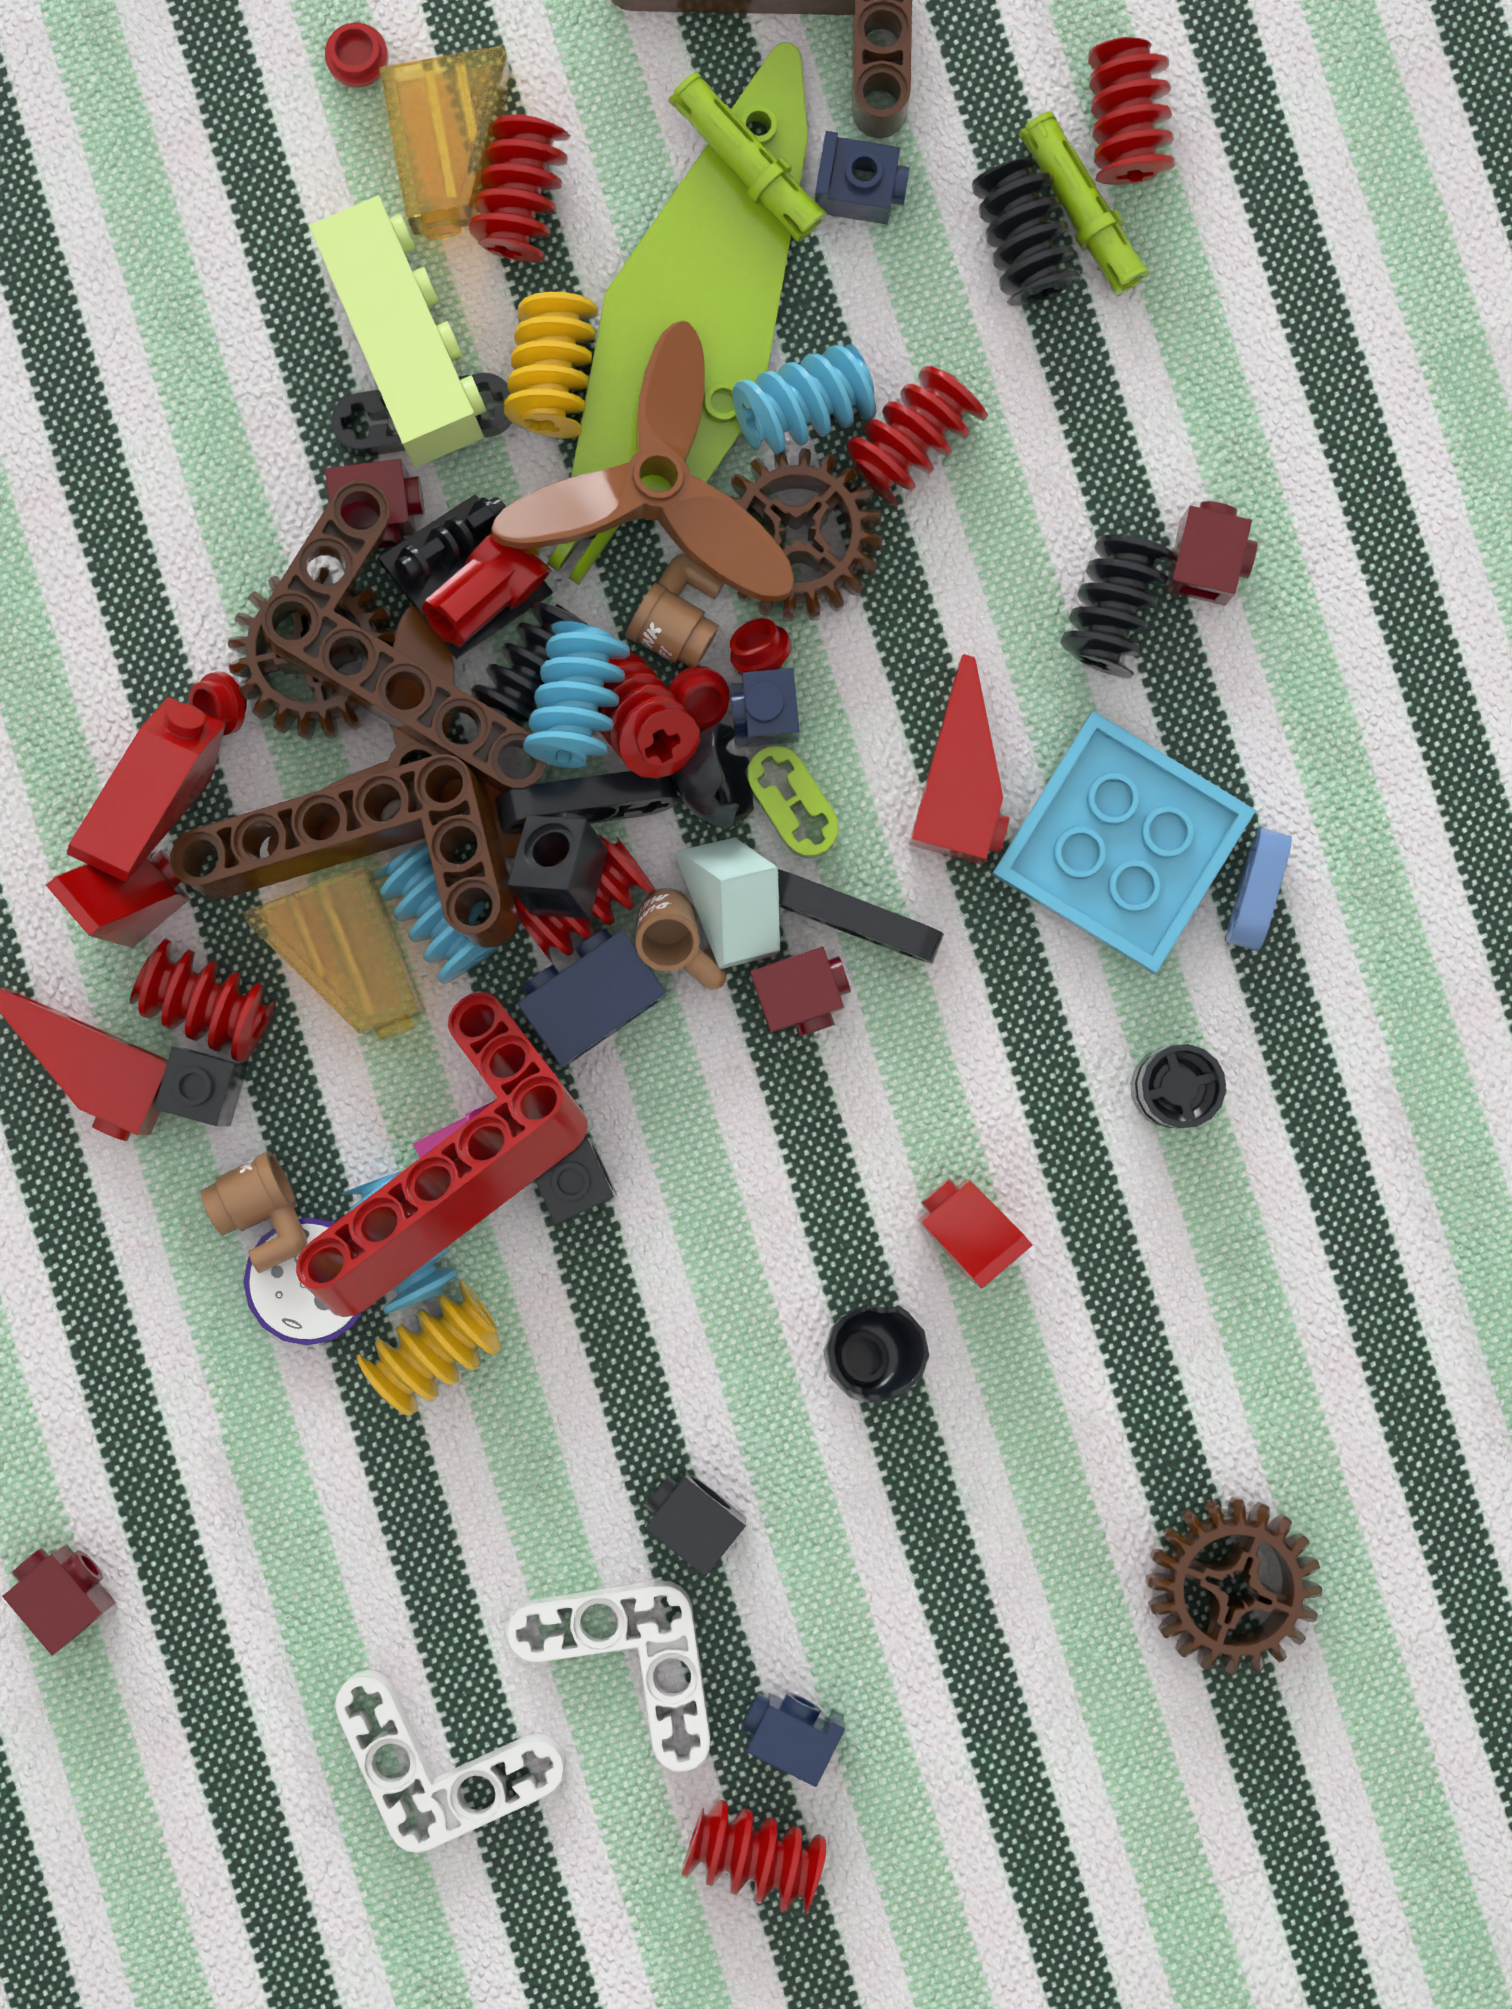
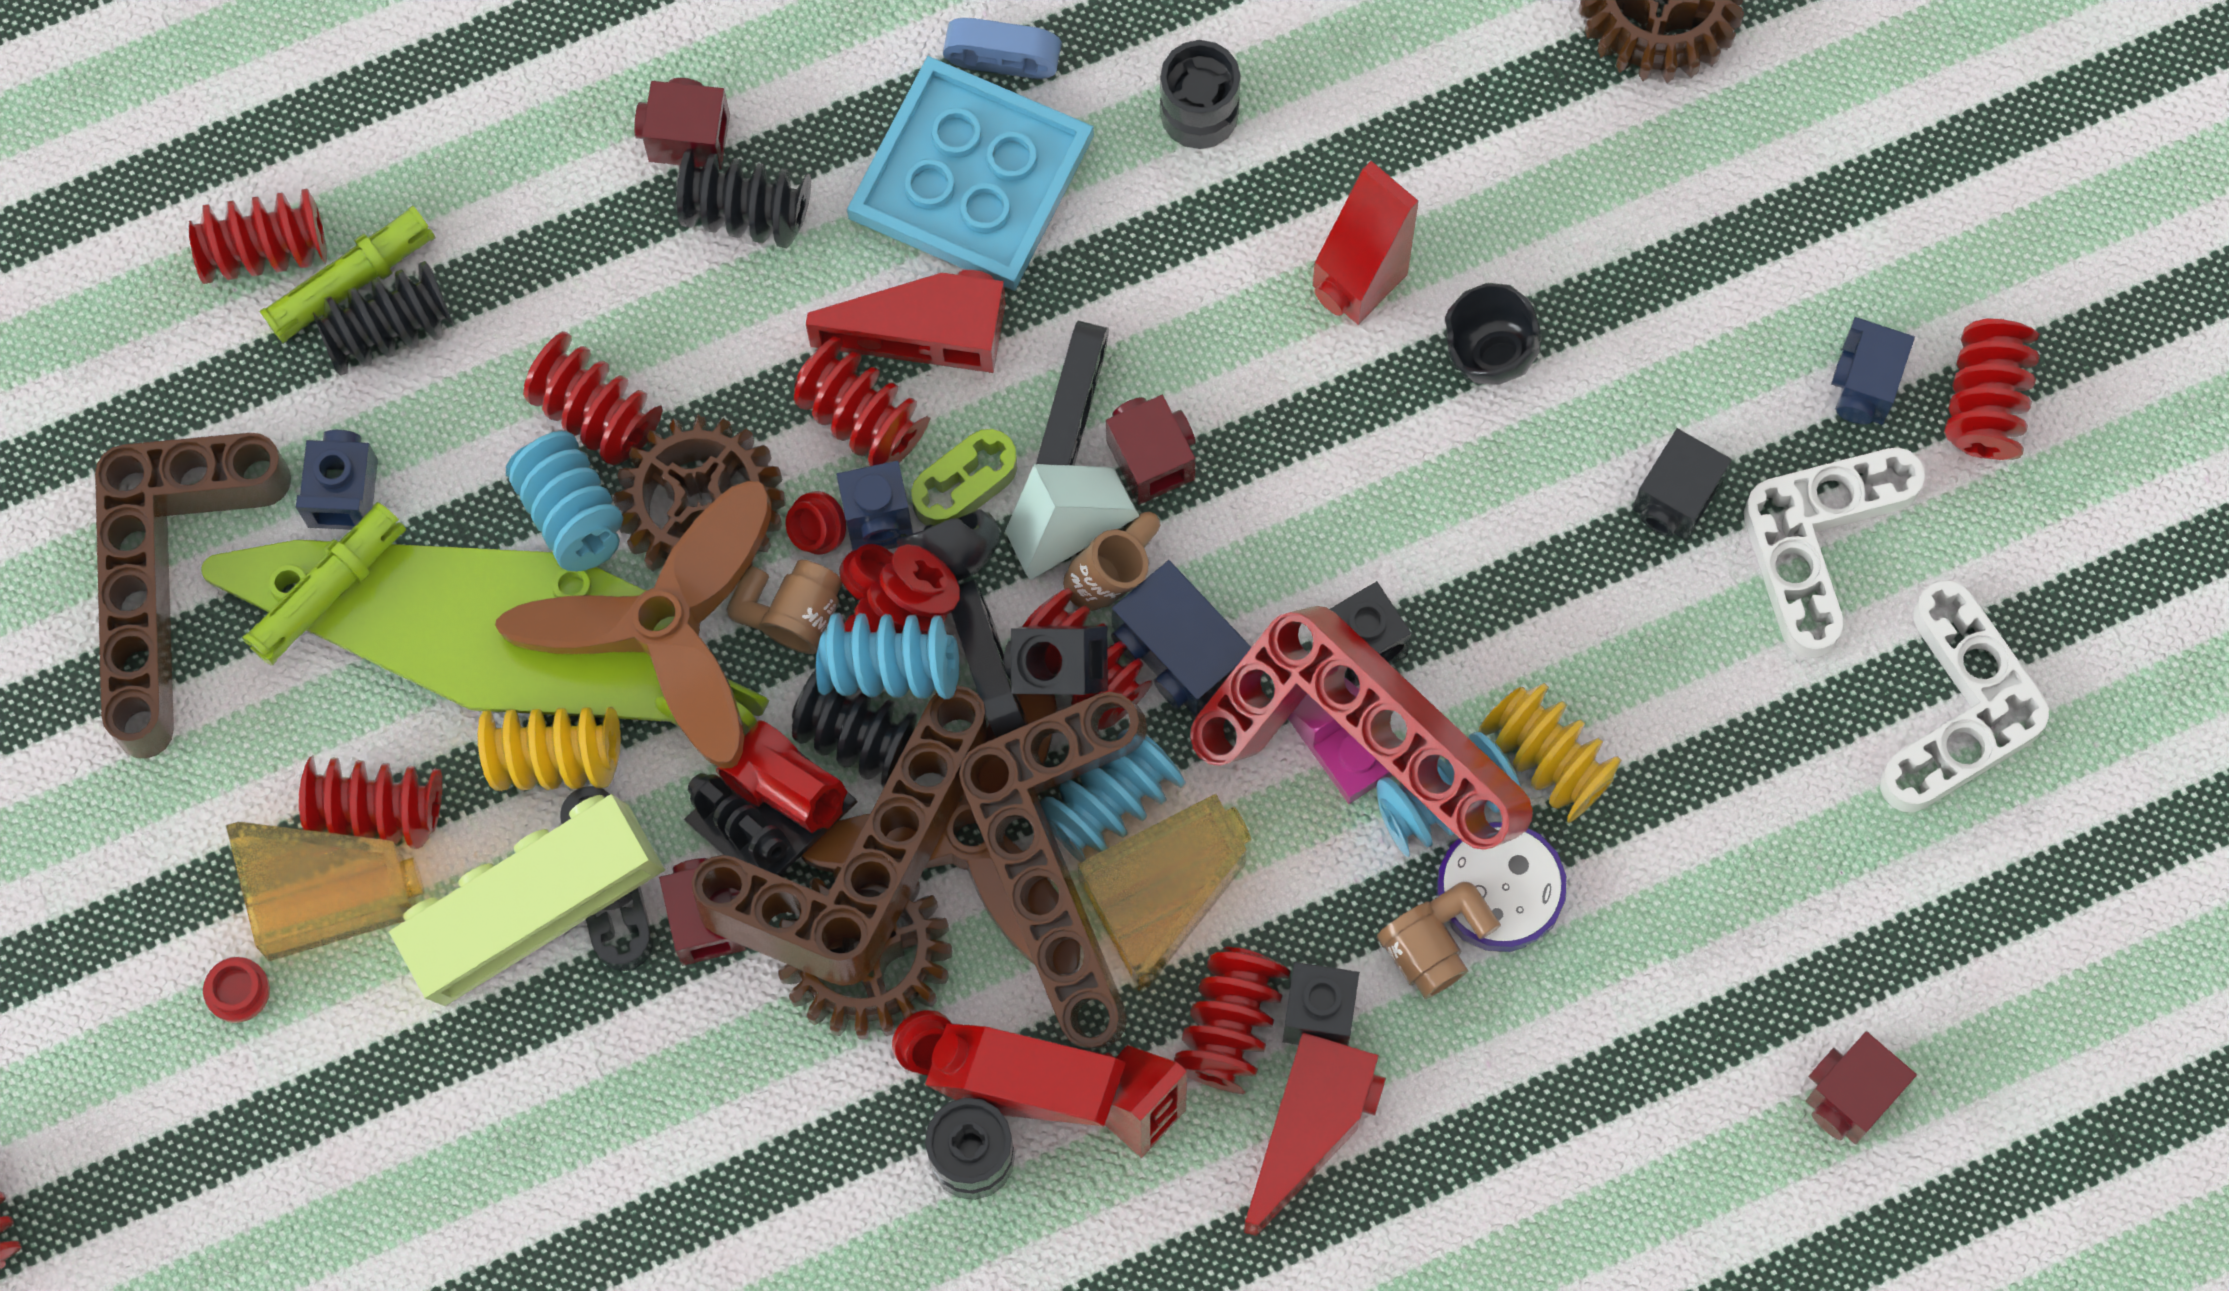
camera: 95 degrees left, 15 degrees down
(95, 729) = (970, 1148): none -> black wheel
(876, 699) = (855, 407): none -> red piece

